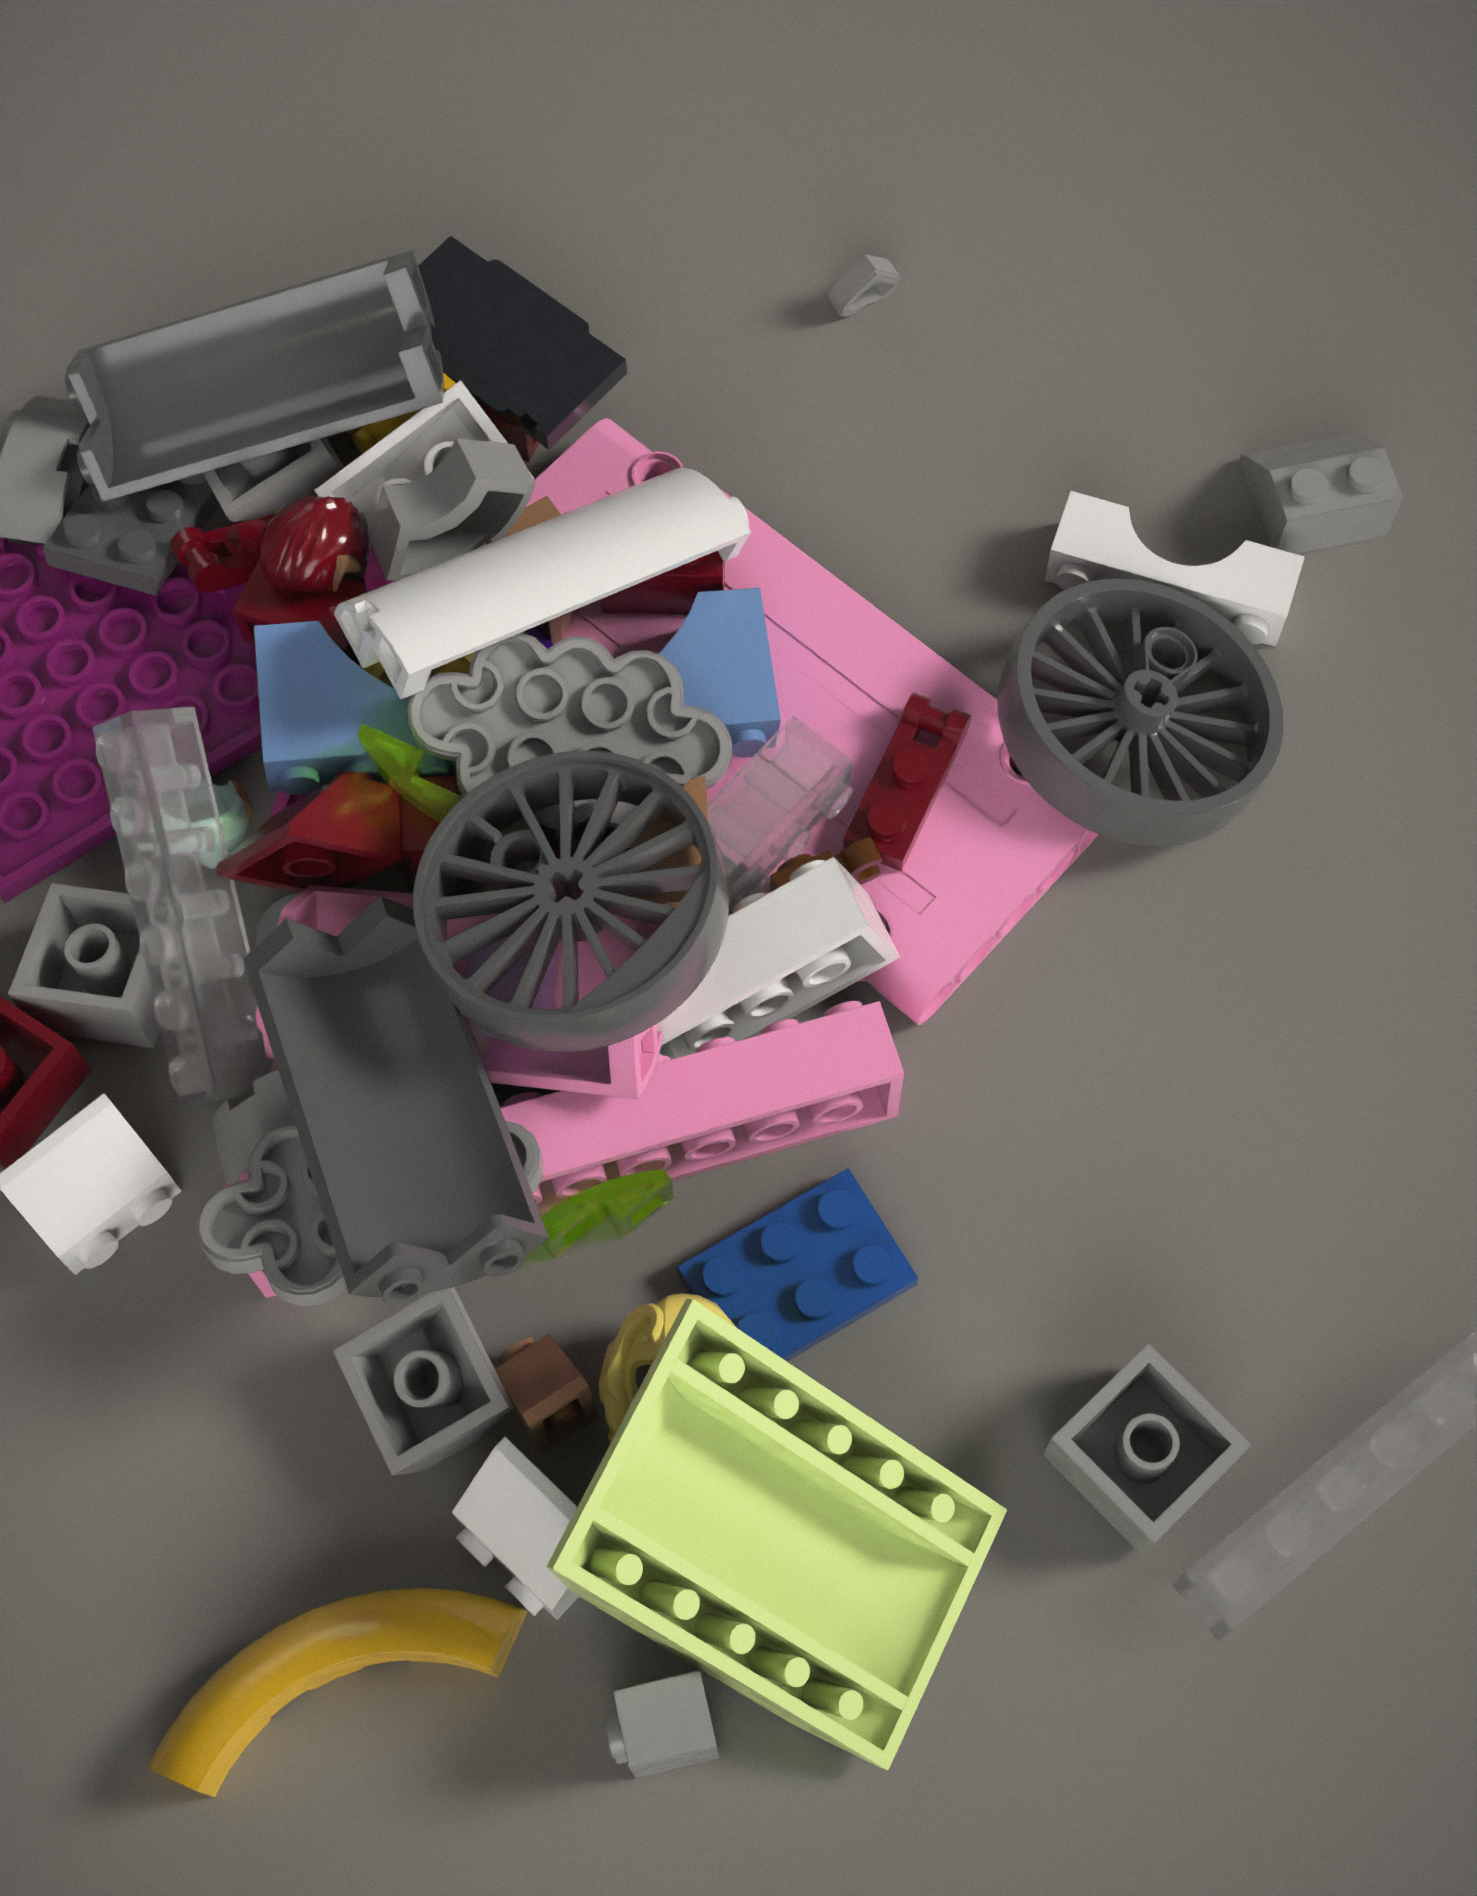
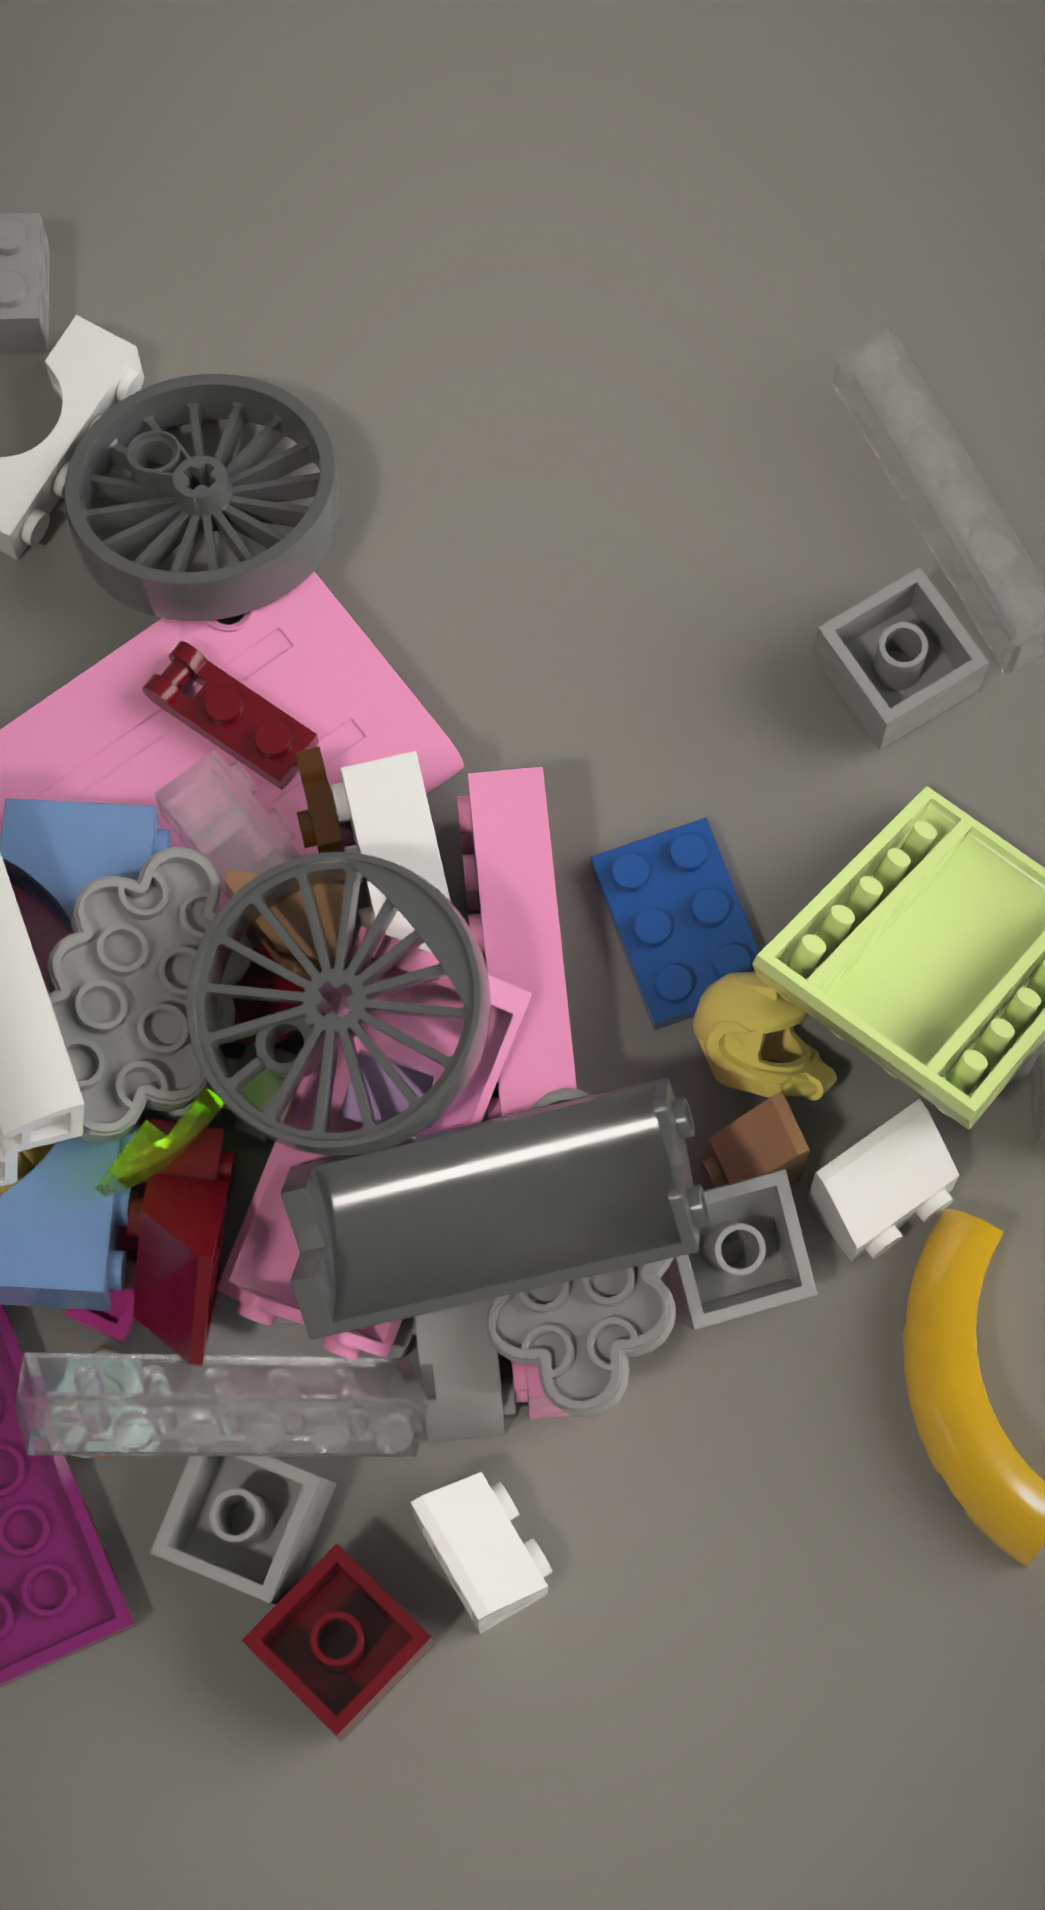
camera: 80 degrees left, 5 degrees up
(622, 1201) = (590, 1053): clear neon green slope -> none

